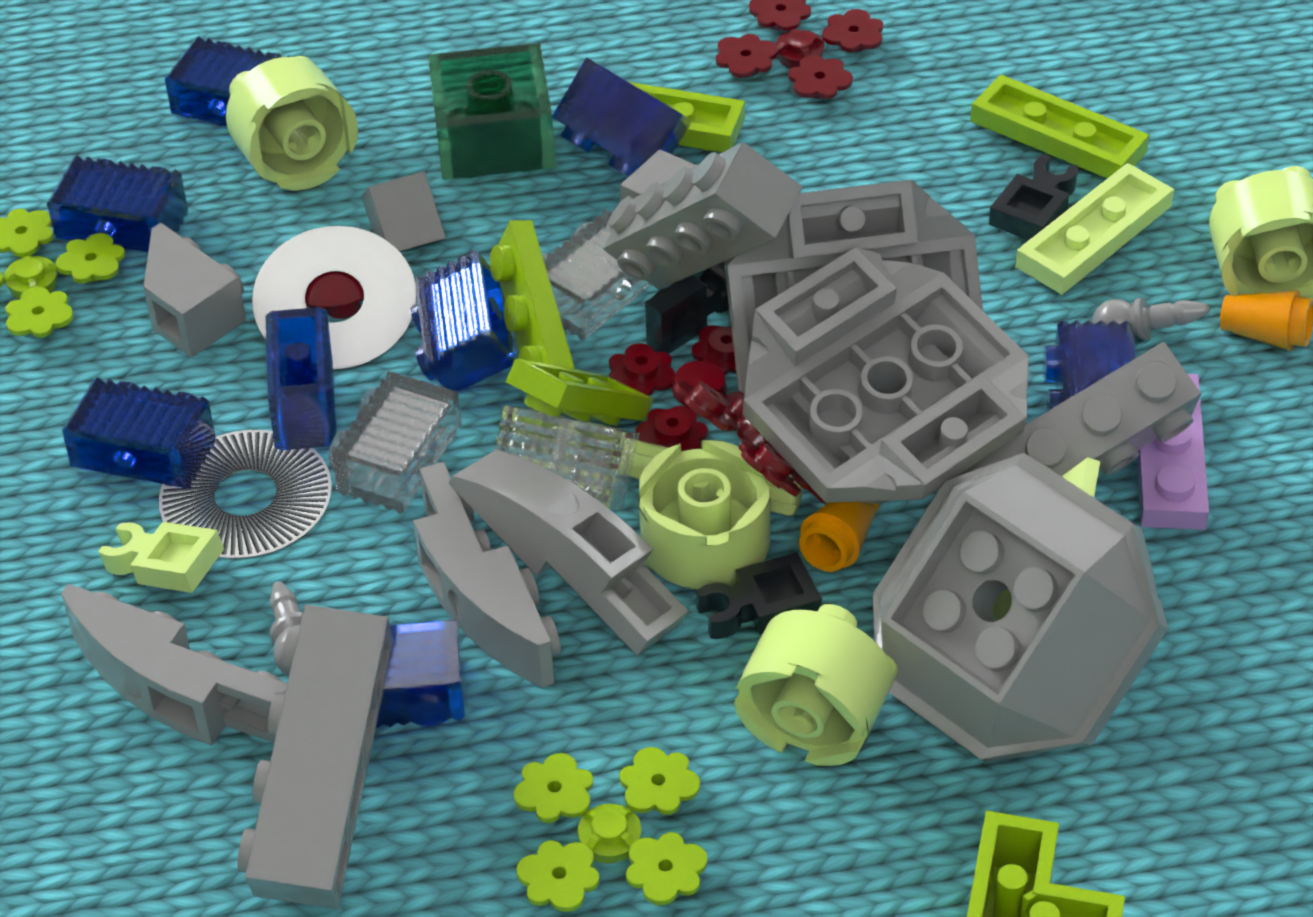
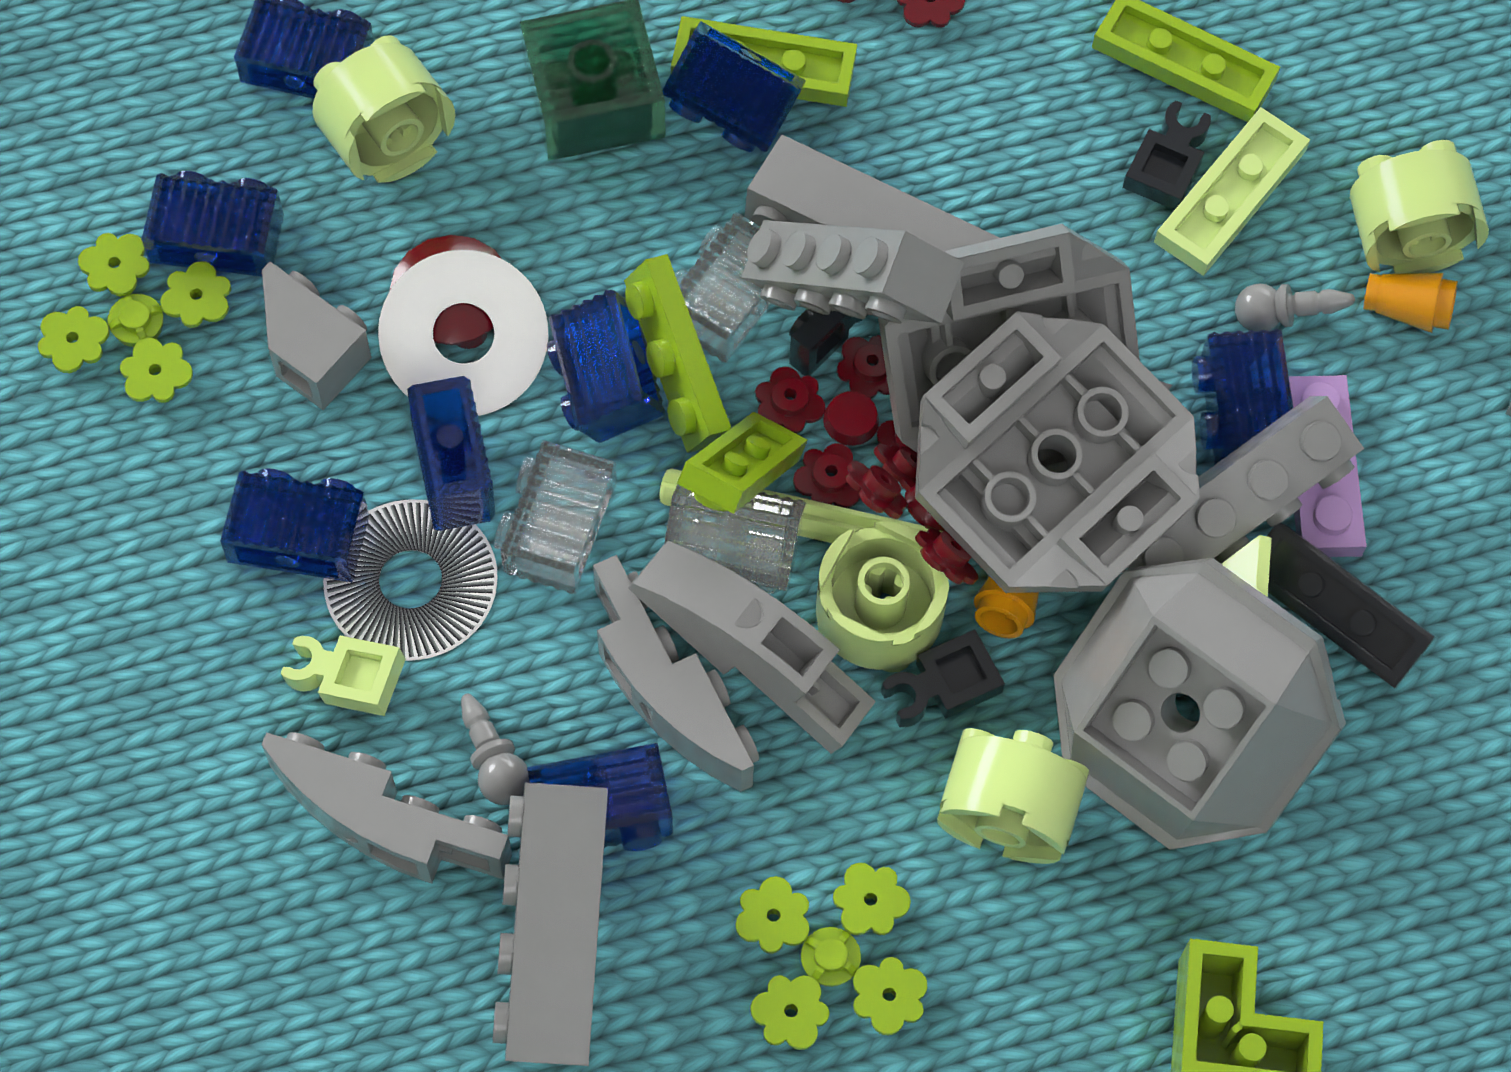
camera: 10 degrees left, 20 degrees up
(404, 212) = (517, 218): light grey brick -> none
(1192, 566) = (1344, 607): none -> black tile

